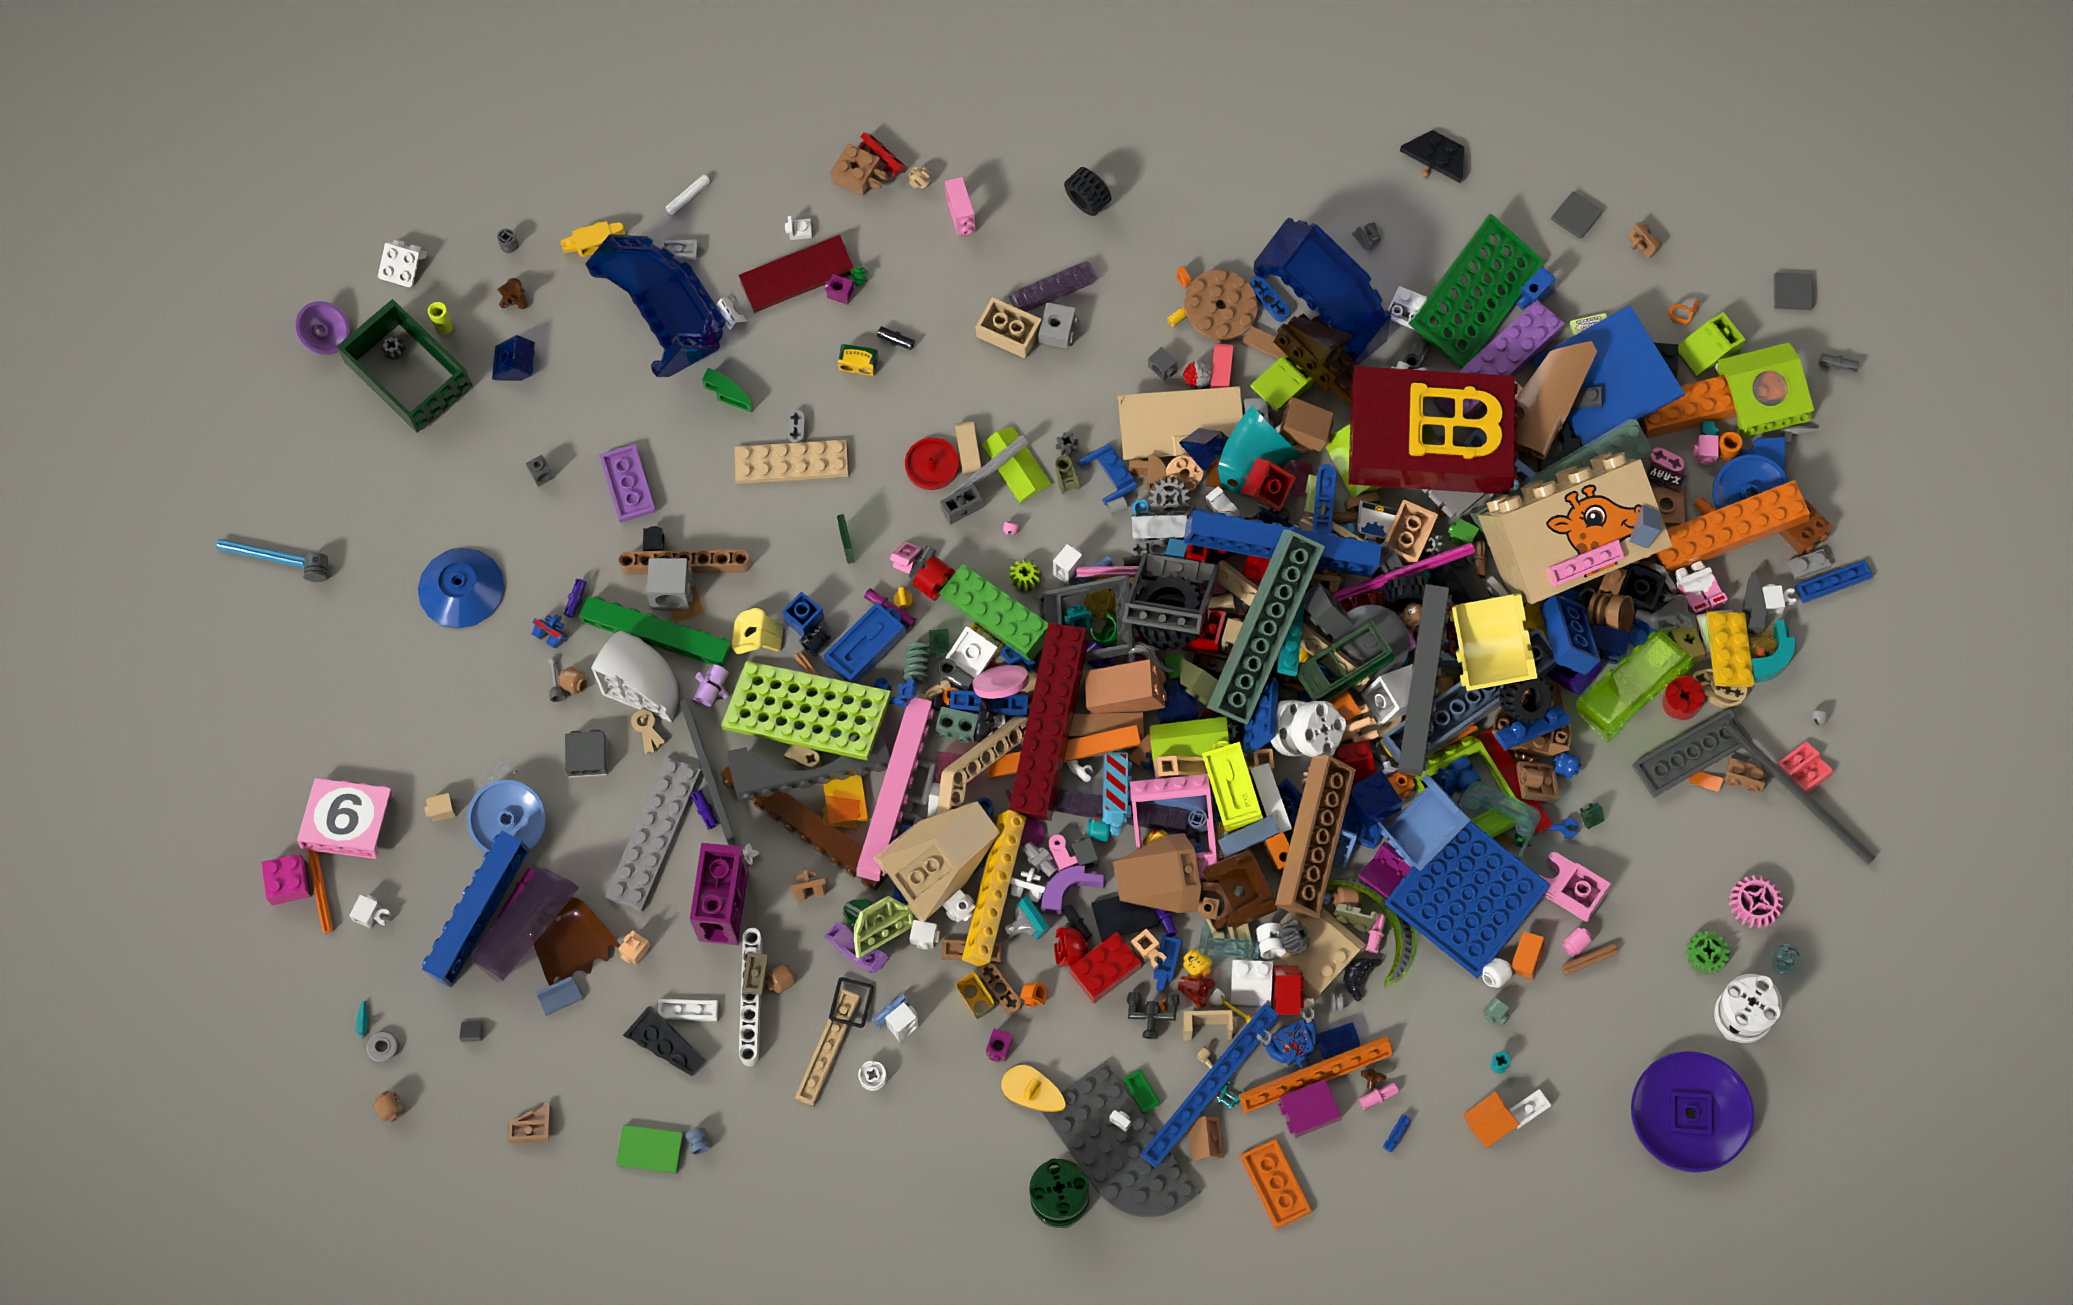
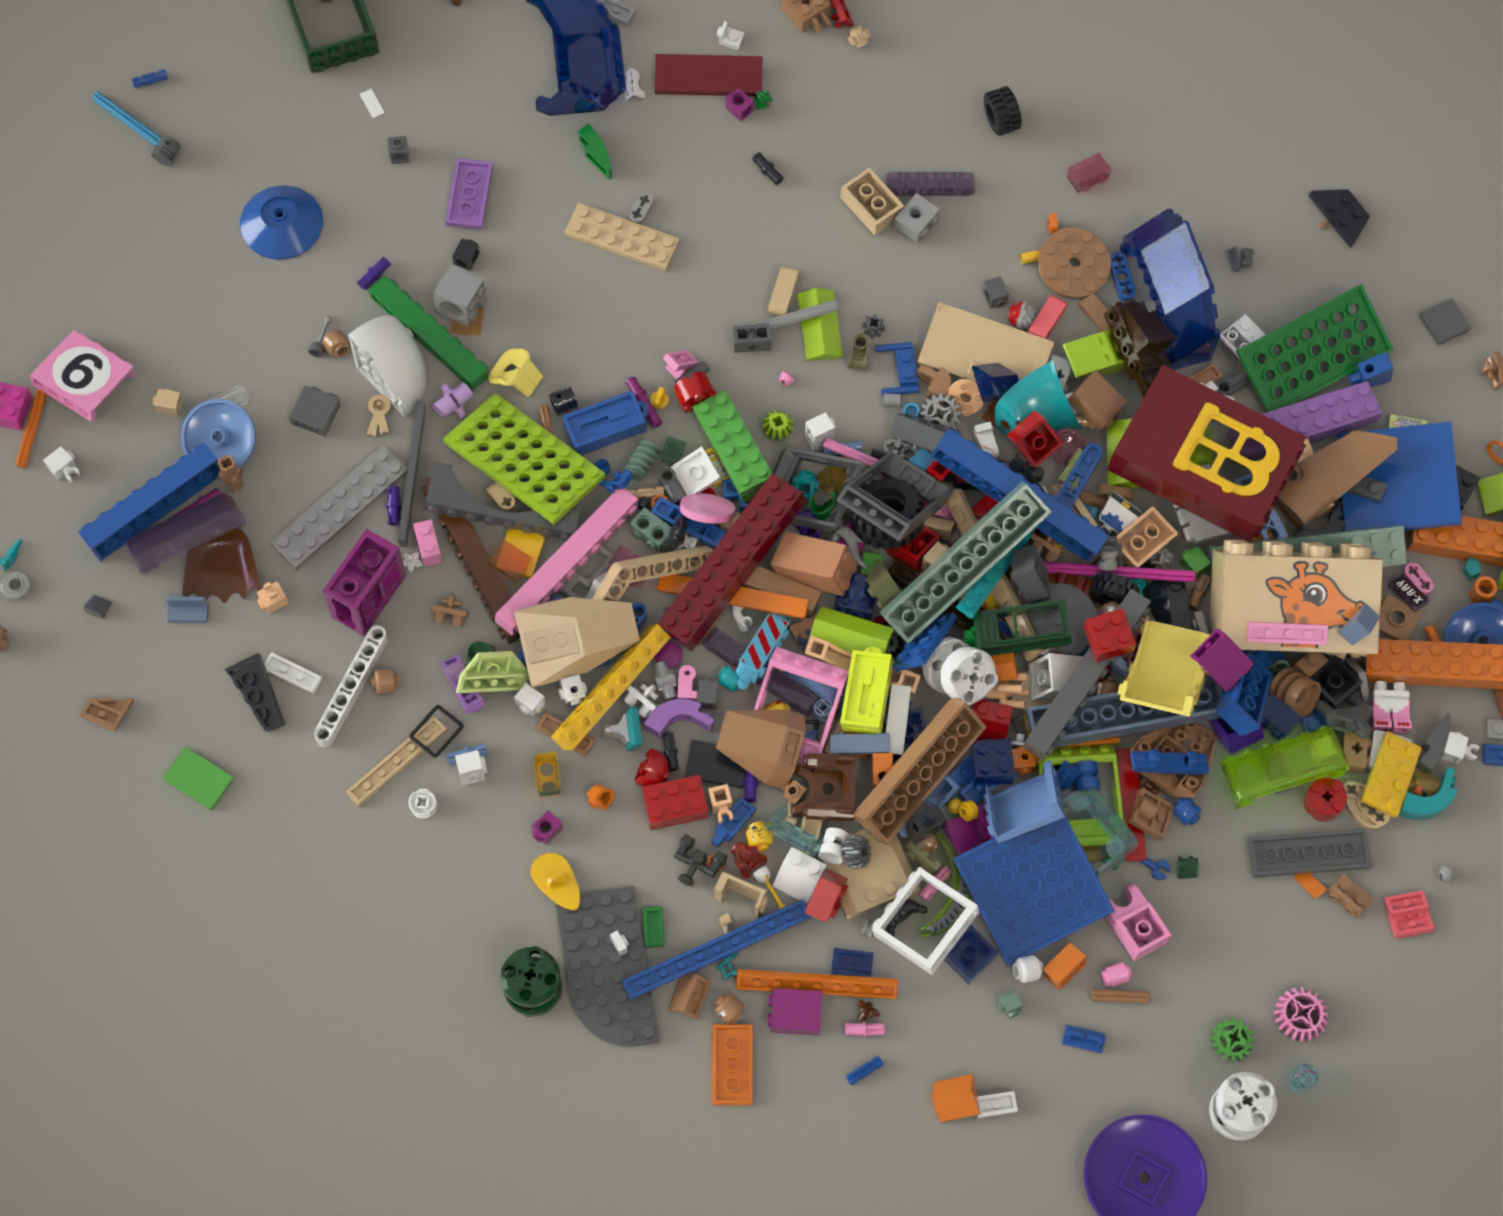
camera: 20 degrees right, 0 degrees up
(263, 504) = (149, 78): none -> blue axle
(490, 436) = (371, 103): none -> white sticker
(513, 359) = (425, 45): clear blue slope -> none
(538, 848) = (230, 474): none -> medium nougat piece
(542, 627) = (333, 286): blue hips -> none
(694, 558) = (494, 284): medium nougat beam -> none
(698, 1140) = (242, 790): sand blue wheel -> none
(755, 830) = (427, 542): none -> bright pink brick
(755, 973) = (362, 666): dark tan plate -> none
(802, 614) = (563, 373): blue head -> none
(845, 538) = (633, 323): clear green tile -> none
(857, 359) = (724, 172): yellow piece -> none
(931, 463) = (744, 292): red piece -> none
(960, 206) = (881, 76): bright pink window -> none
(1004, 1003) = (581, 791): medium nougat beam -> none
(1192, 215) = (1088, 173): none -> clear pink brick
(1248, 1134) = (729, 1008): none -> medium nougat head
(1293, 1042) = (810, 946): blue torso -> none
(1300, 693) = (970, 637): none -> green wheel
(1348, 880) = (929, 823): none -> black torso
(1373, 853) = (968, 810): none -> yellow plate
(1388, 565) = (1108, 558): none -> light grey wheel
(1391, 357) = (1208, 374): none -> nougat tile
(1419, 976) = (949, 940): none -> white window
(1429, 635) = (1109, 635): none -> red brick
(1439, 983) = (971, 955): none -> clear blue brick
(1494, 1062) = (991, 1056): teal bush -> none
(1536, 705) = (1179, 745): black tyre -> none
(1539, 613) = (1222, 660): none -> magenta brick
(1576, 1013) = (1083, 1039): none -> blue hinge
(1706, 449) = (1460, 584): bright pink brick -> none
(1799, 792) = (1391, 934): dark grey axle -> none

